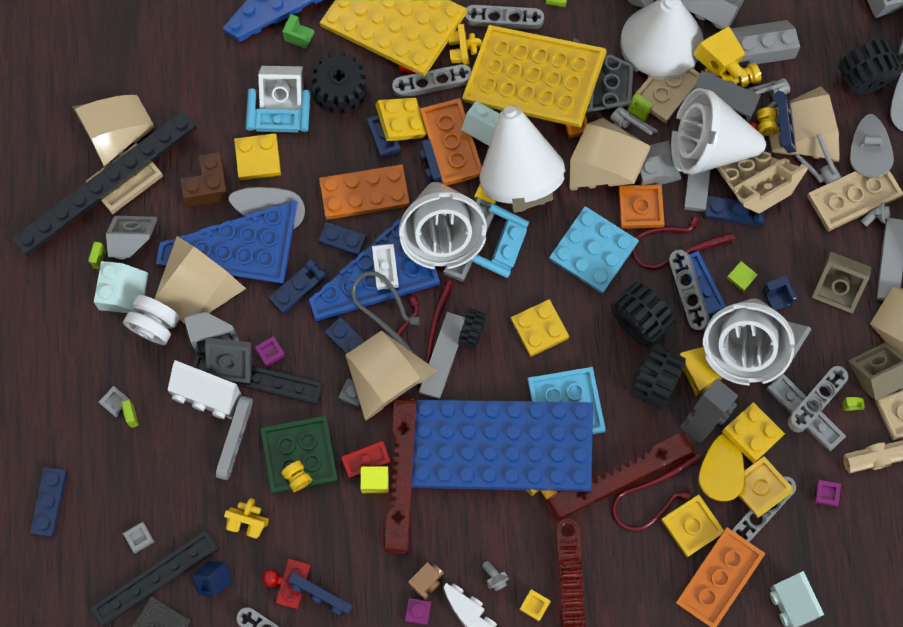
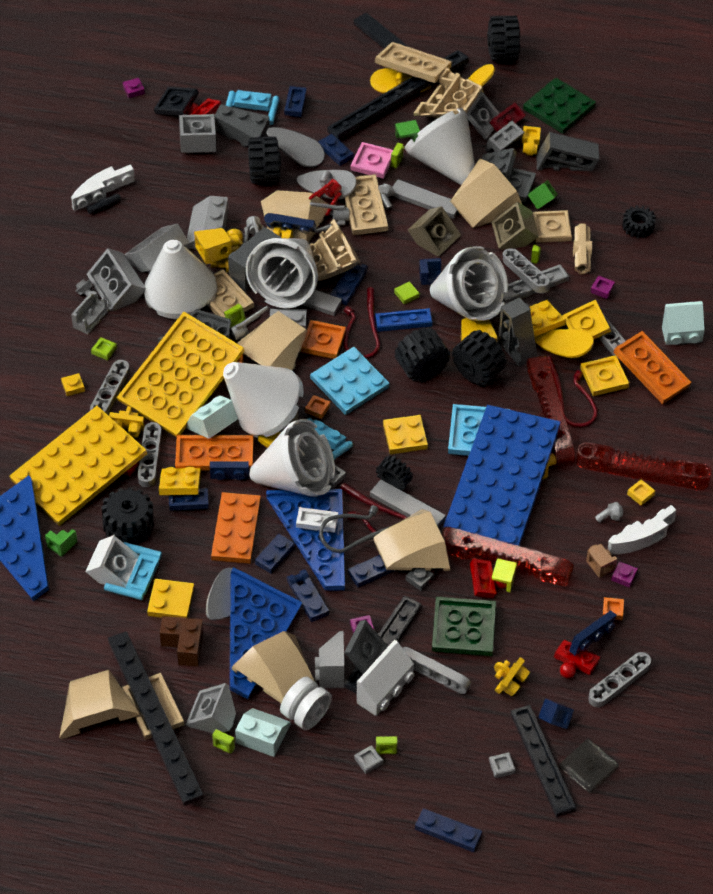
camera: 75 degrees left, 20 degrees down
(296, 476) = (486, 624): yellow wheel -> none
(365, 609) = (615, 605): none -> orange plate
(545, 226) = (317, 407): none -> orange plate
(686, 291) = (408, 322): light grey beam -> none
(856, 151) = (331, 189): none -> red plant

